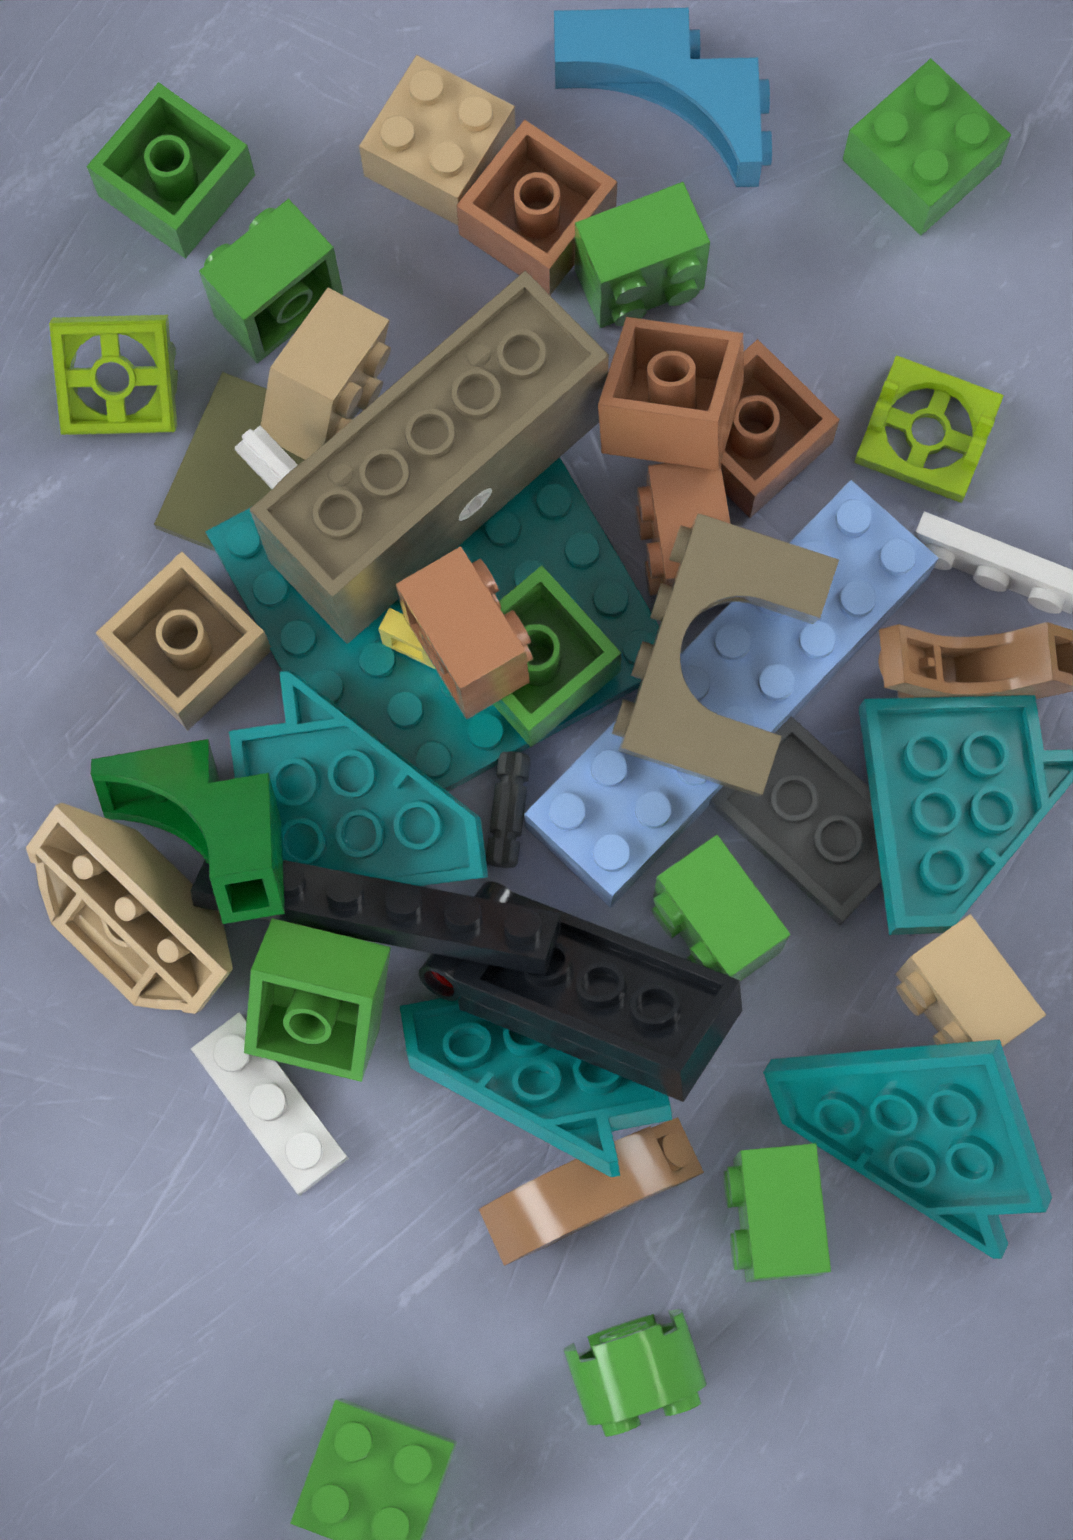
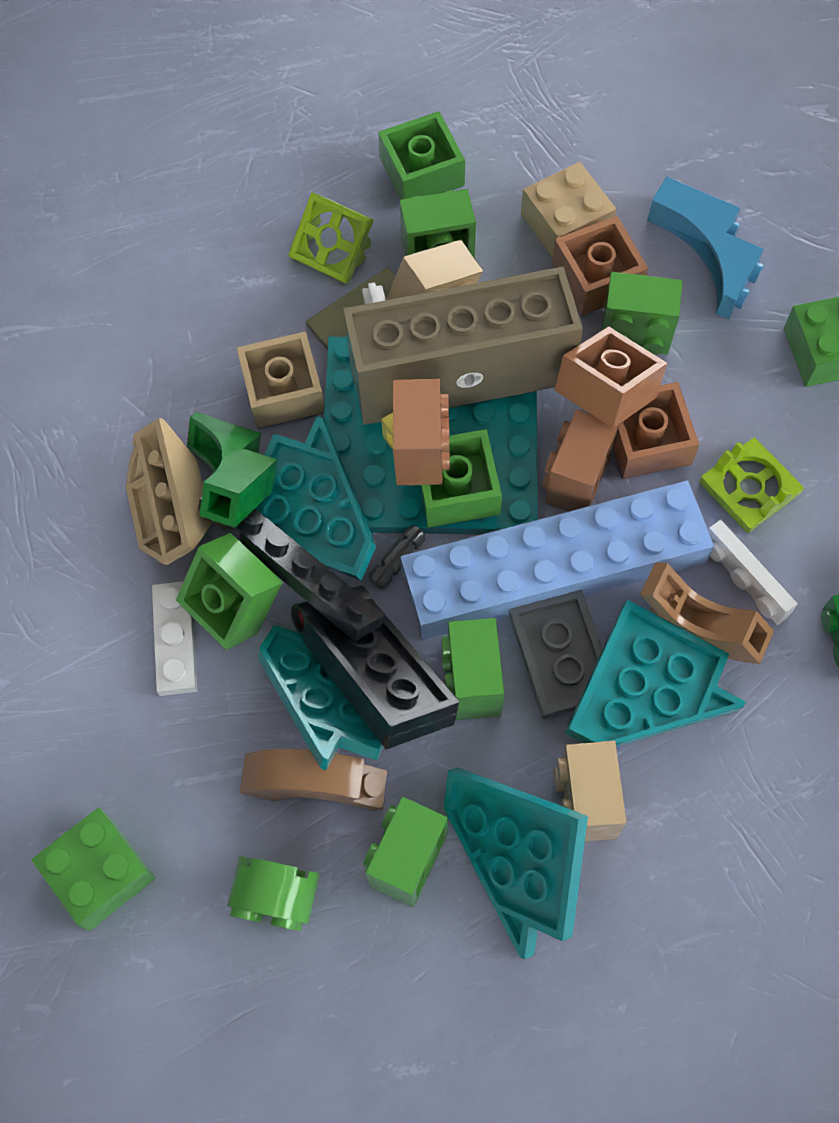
camera: 30 degrees right, 10 degrees down
(715, 568) = (577, 475): dark tan arch -> none

